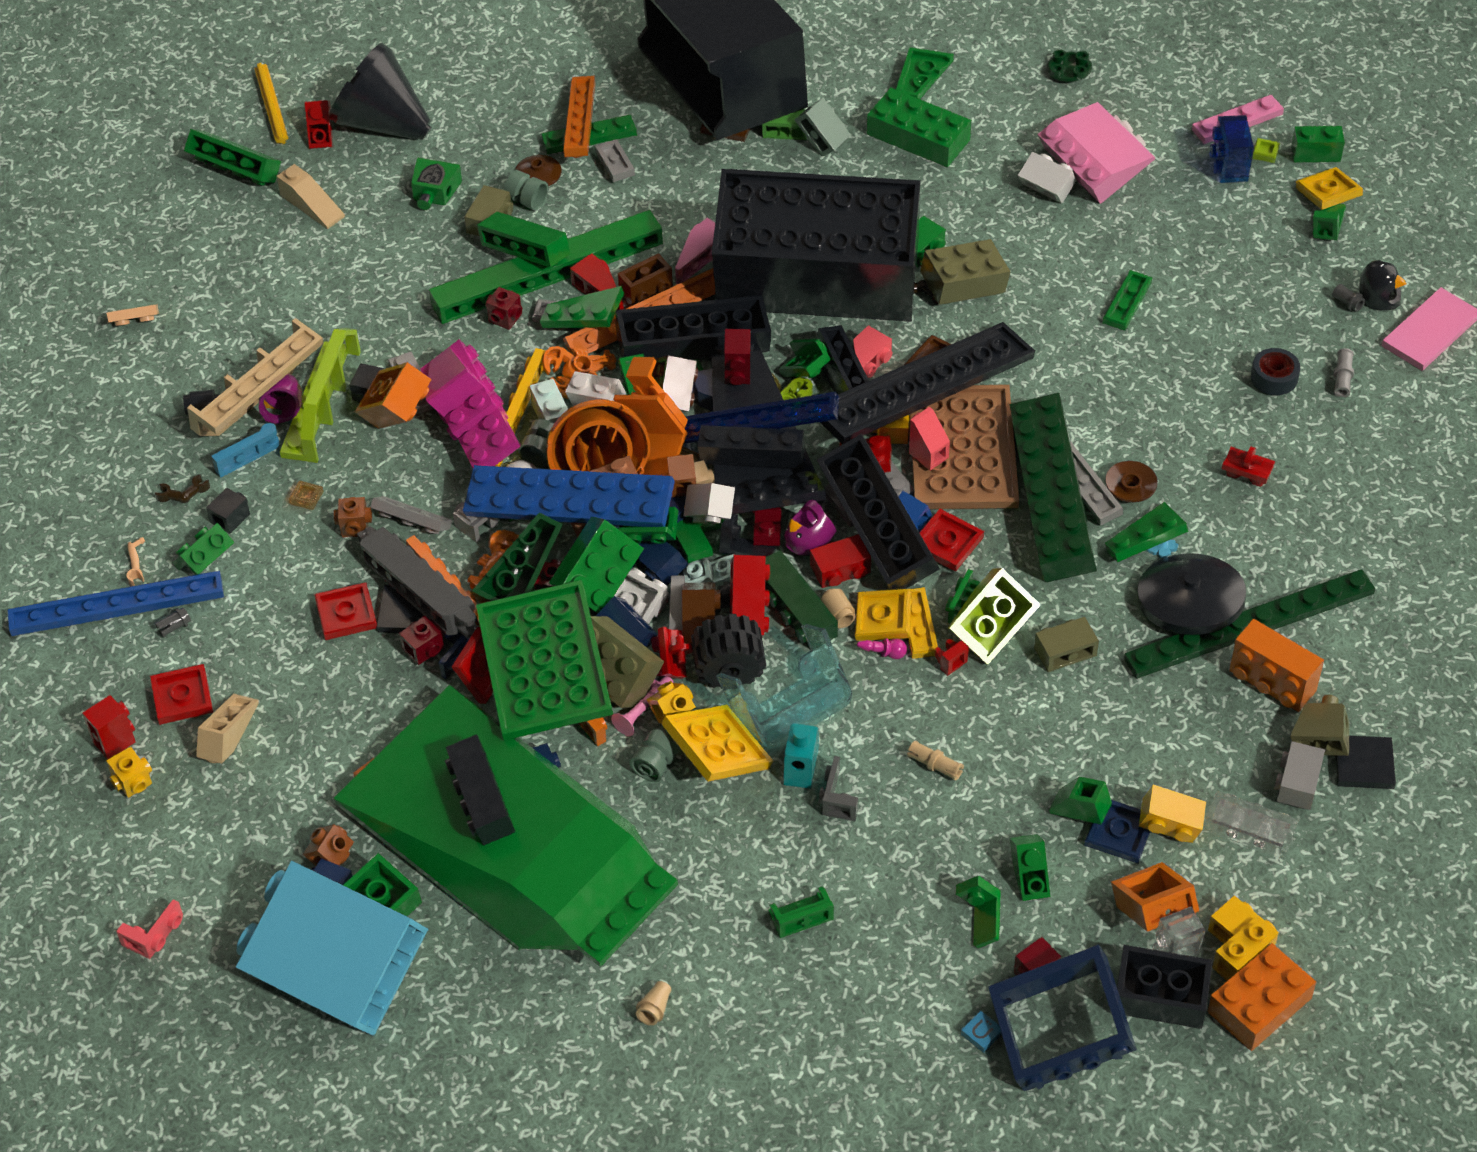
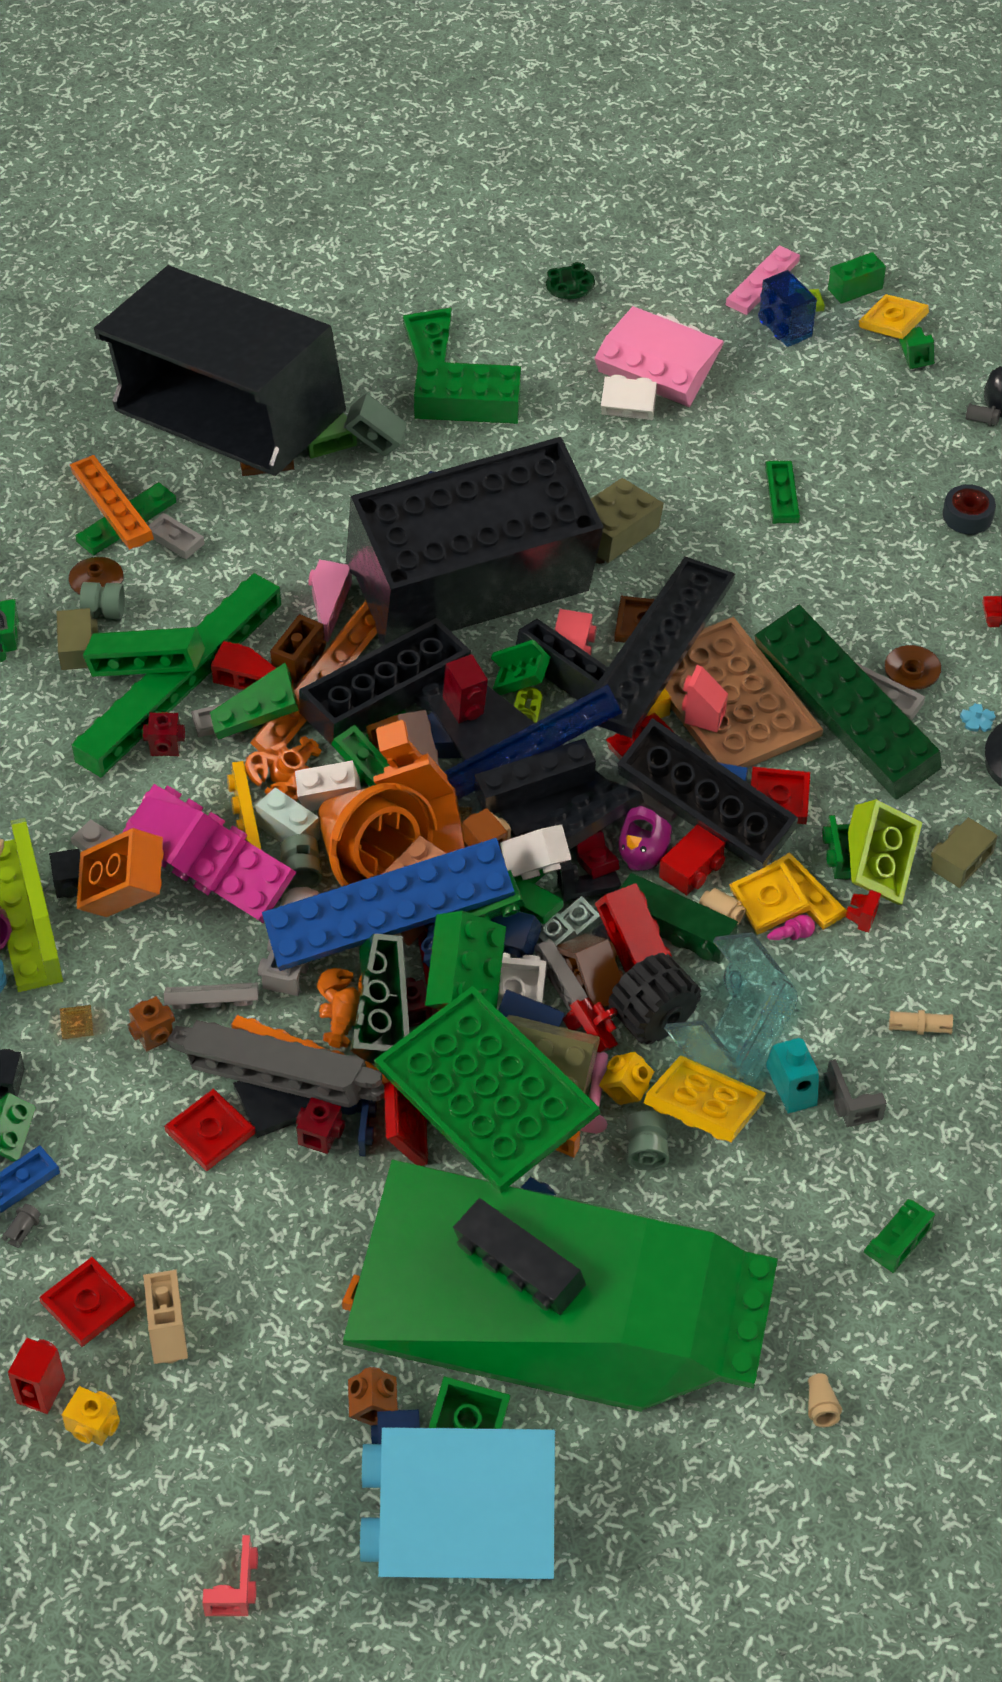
camera: 30 degrees left, 0 degrees up
(1148, 531) = (961, 711): green wing -> none

